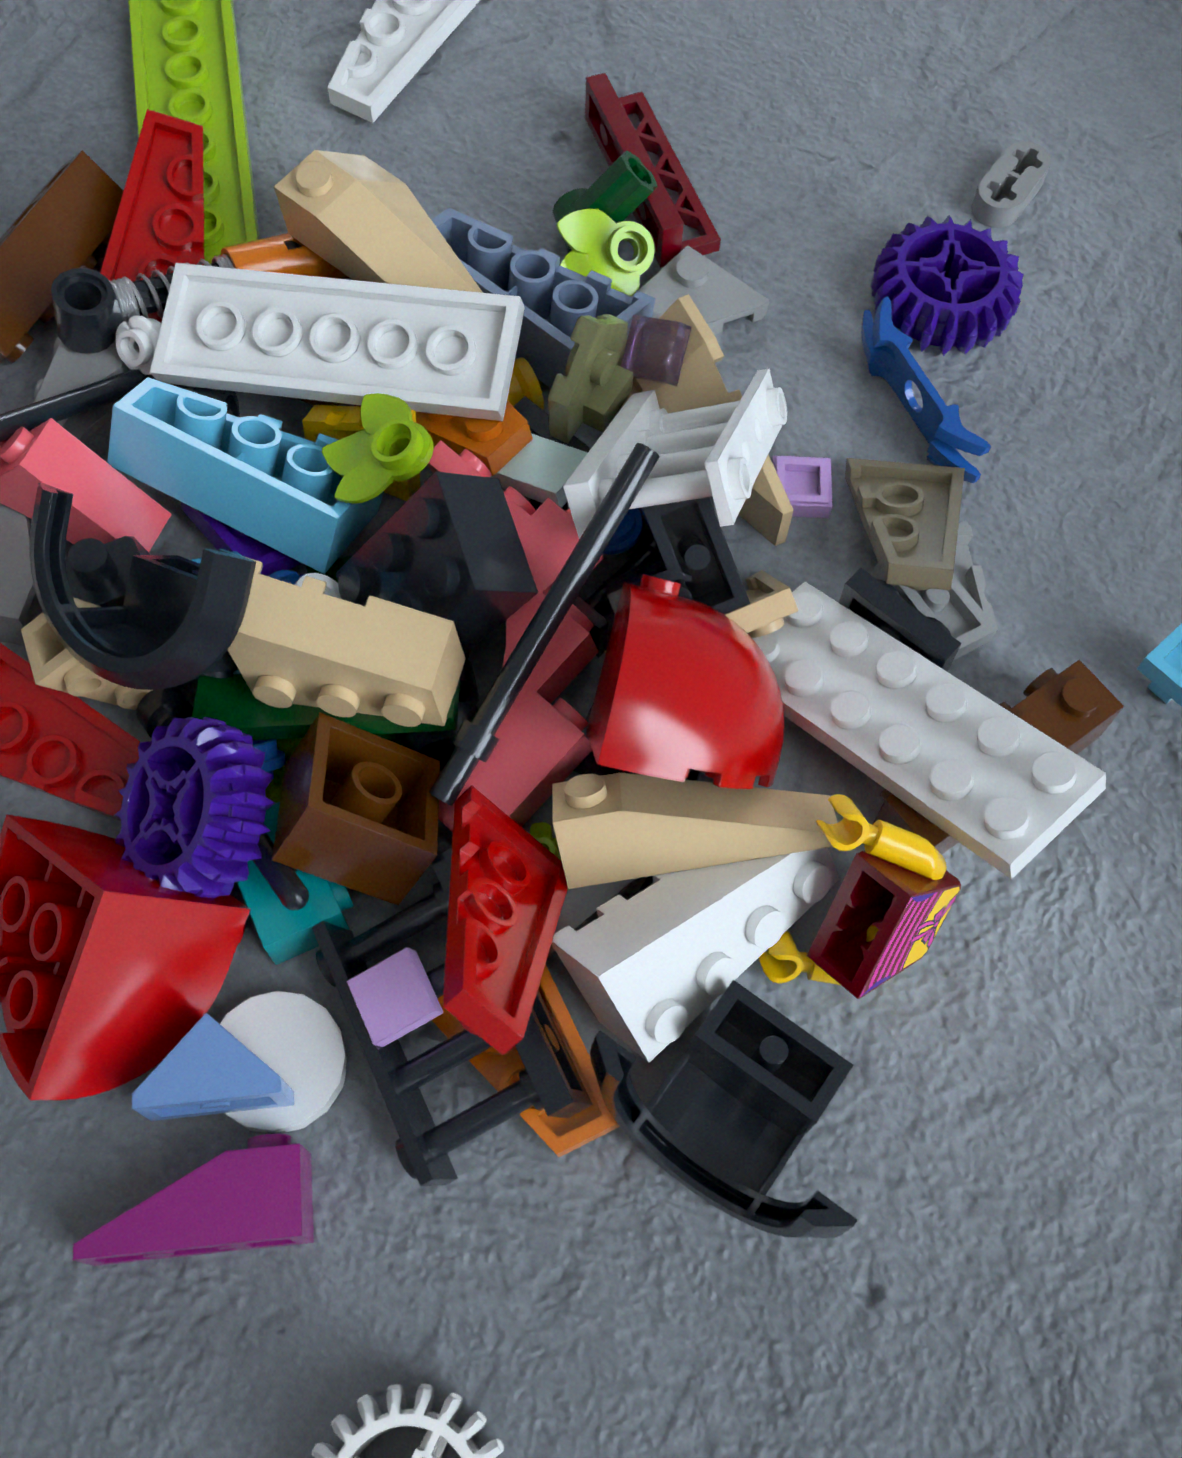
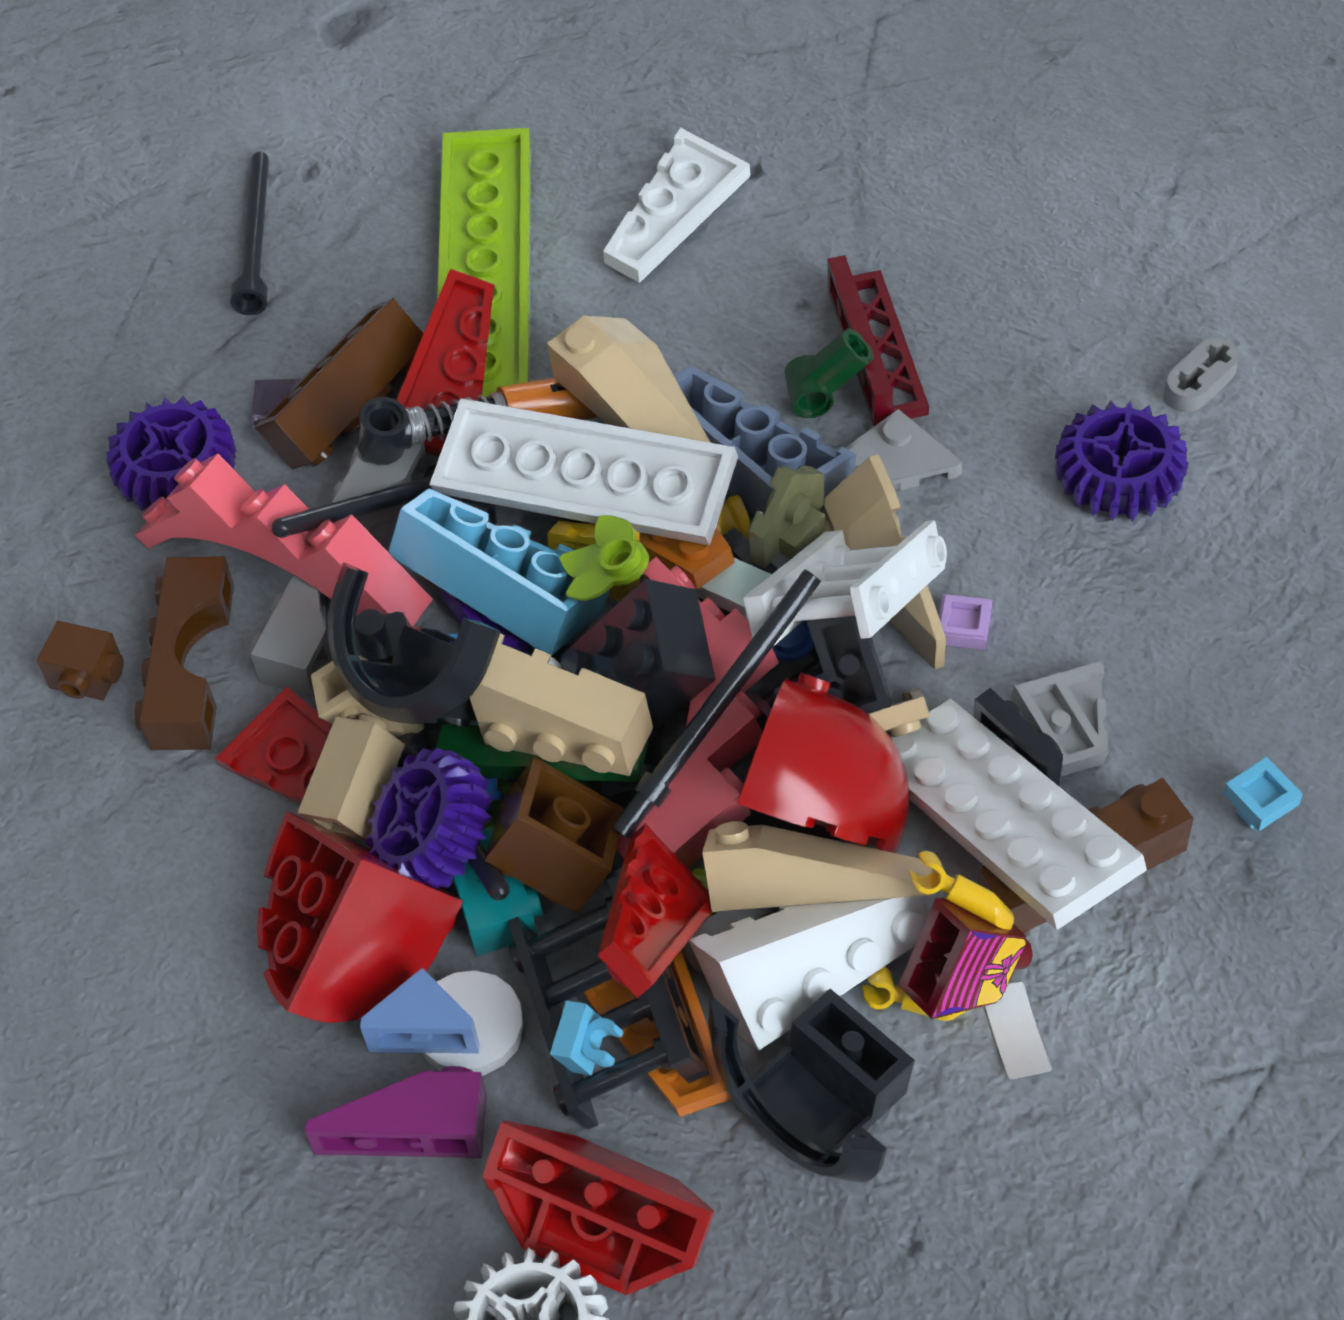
camera: 15 degrees right, 10 degrees down
(85, 756) = (350, 775): none -> tan brick
(137, 342) = (421, 459): white plate -> none
(394, 997) = (566, 975): lavender tile -> none
(424, 1088) = (580, 1039): none -> medium azure tile
(475, 1311) = (595, 1207): none -> red wedge
(595, 245) = (814, 405): lime plate -> none
(656, 349) = (846, 497): clear purple tile -> none
(909, 518) = (1048, 653): dark tan wing -> none
(940, 424) = (1056, 519): blue piece -> none
(952, 998) = (1017, 1034): none -> white sticker

